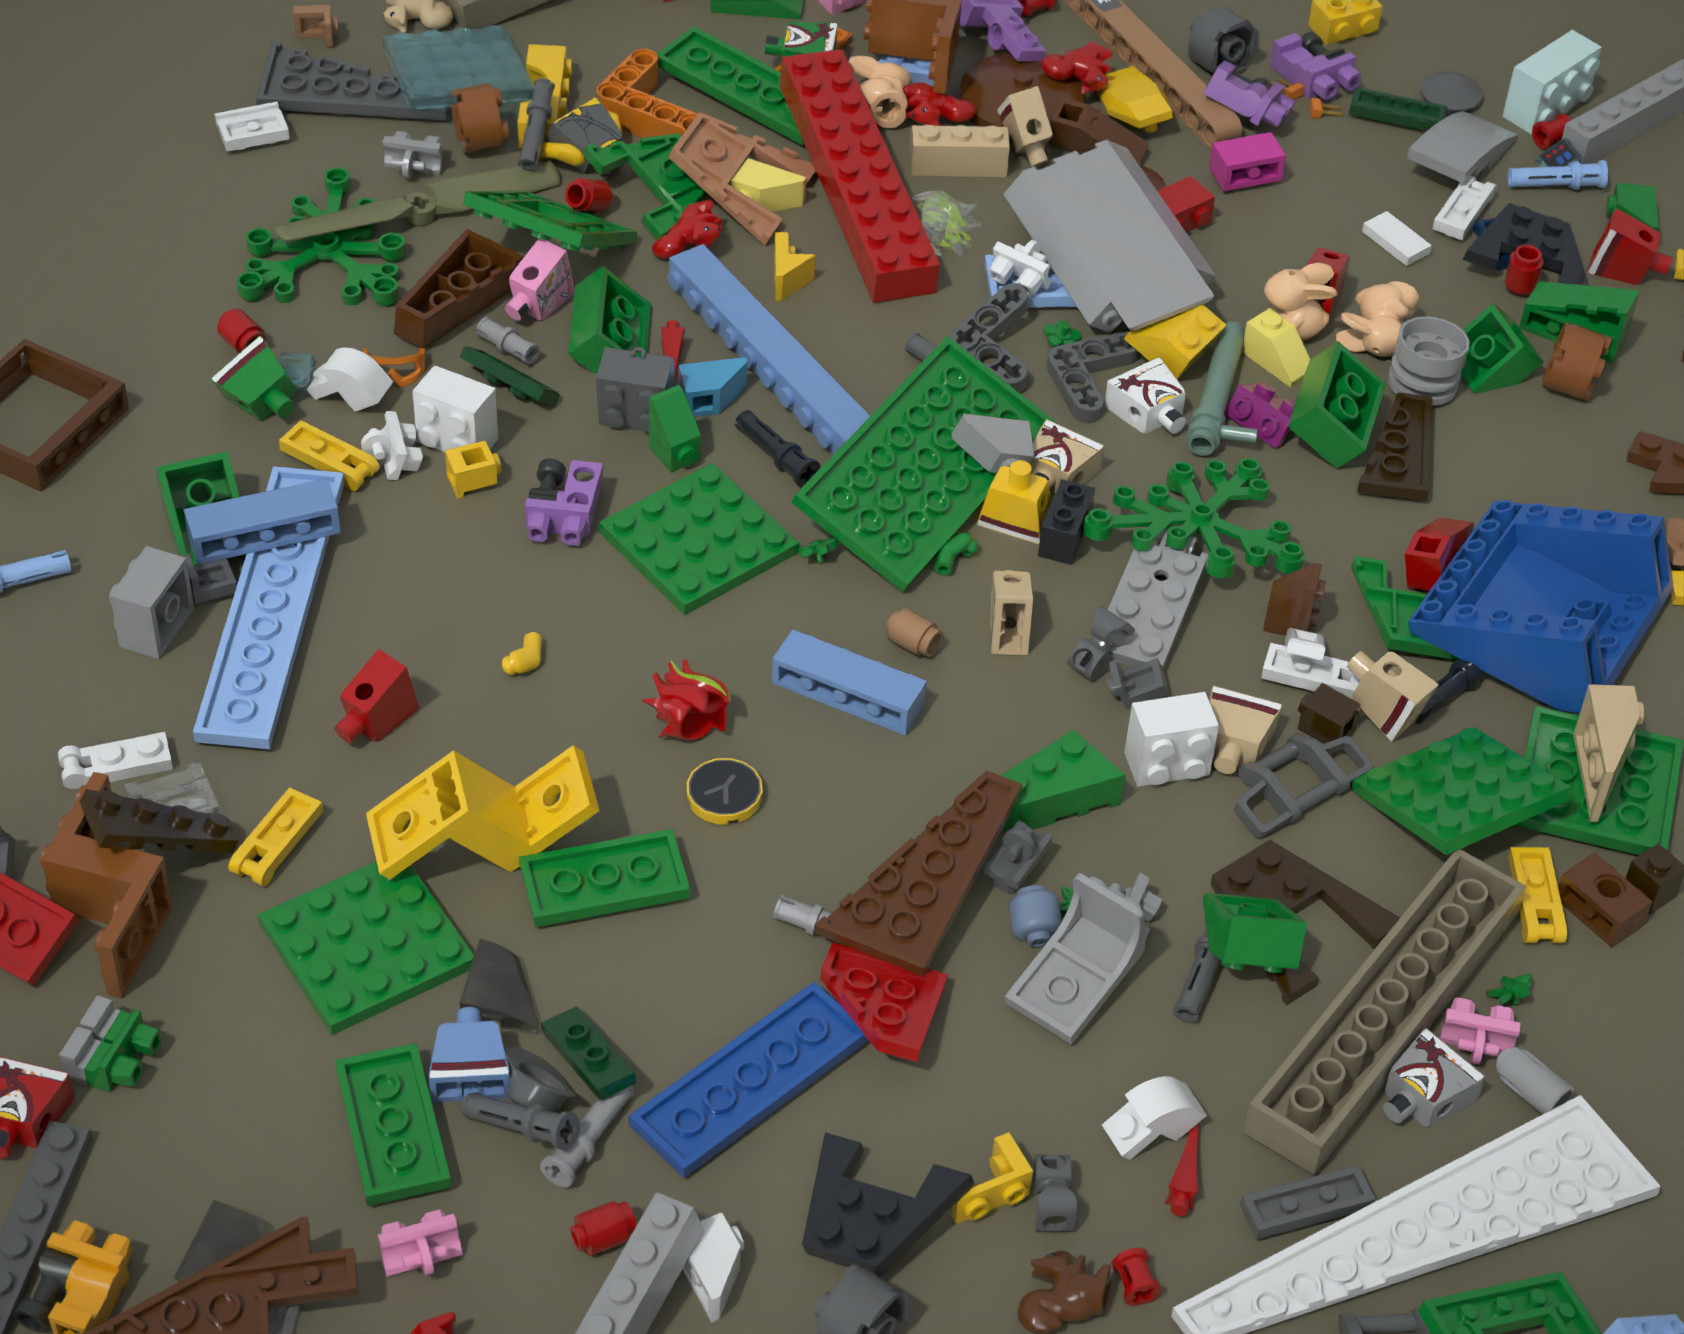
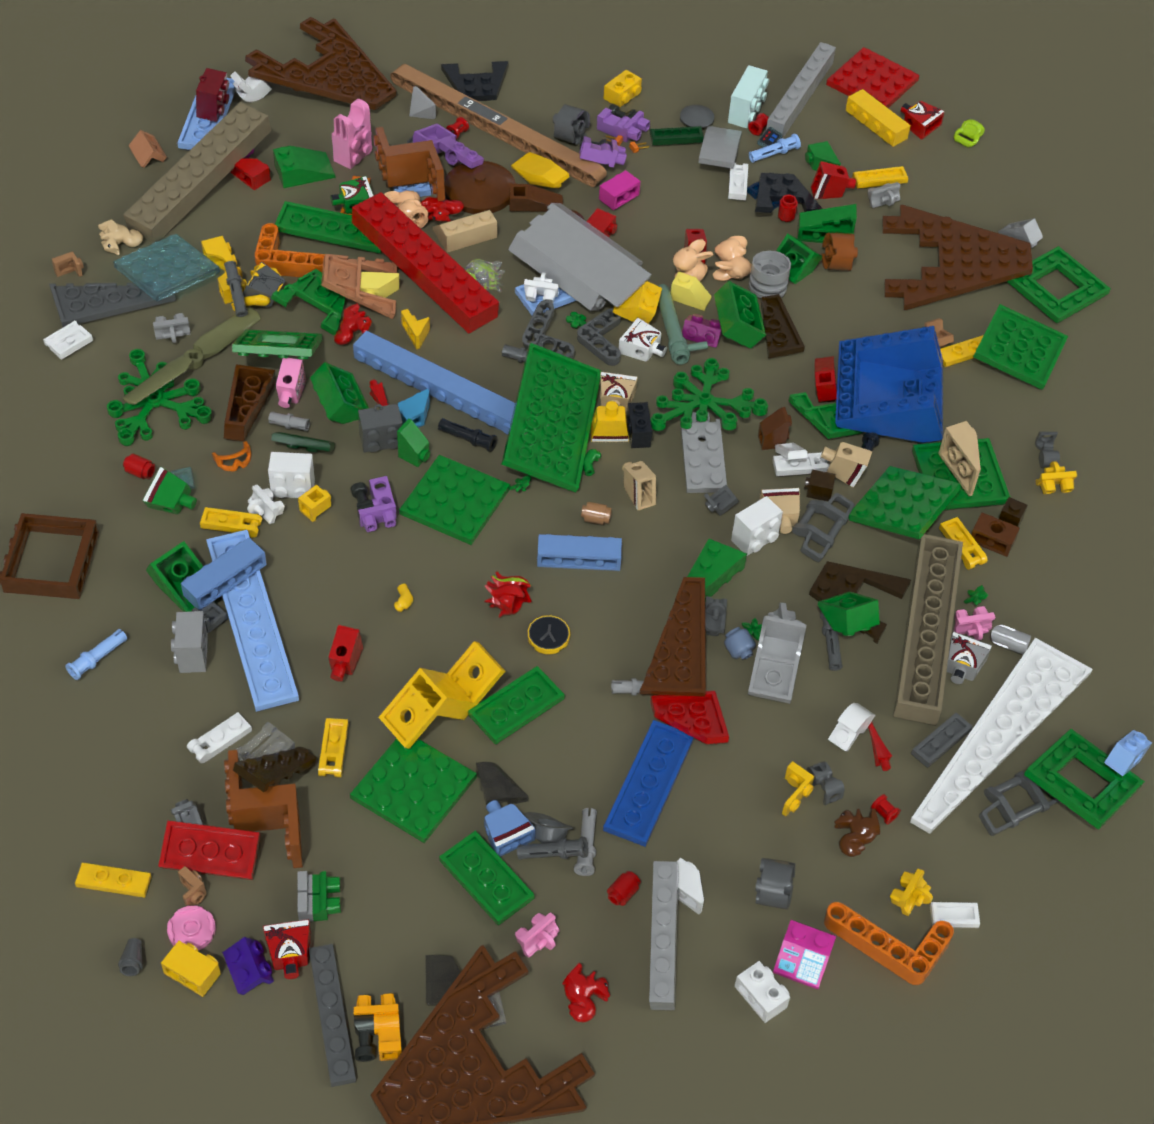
camera: 25 degrees left, 5 degrees up
(354, 376) = (220, 471): white brick -> none
(478, 117) = (199, 294): dark orange brick -> none
(588, 195) = (286, 321): red brick -> none
(588, 1053) = (564, 801): dark green plate -> none
(867, 1223) = (747, 834): black wing -> none
(994, 440) = (585, 394): light grey slope -> none
(1023, 114) = (498, 203): tan torso -> none
(1082, 63) = (506, 160): red animal -> none
(1091, 655) = (691, 493): dark grey leg -> none
(1396, 238) = (713, 209): white tile -> none

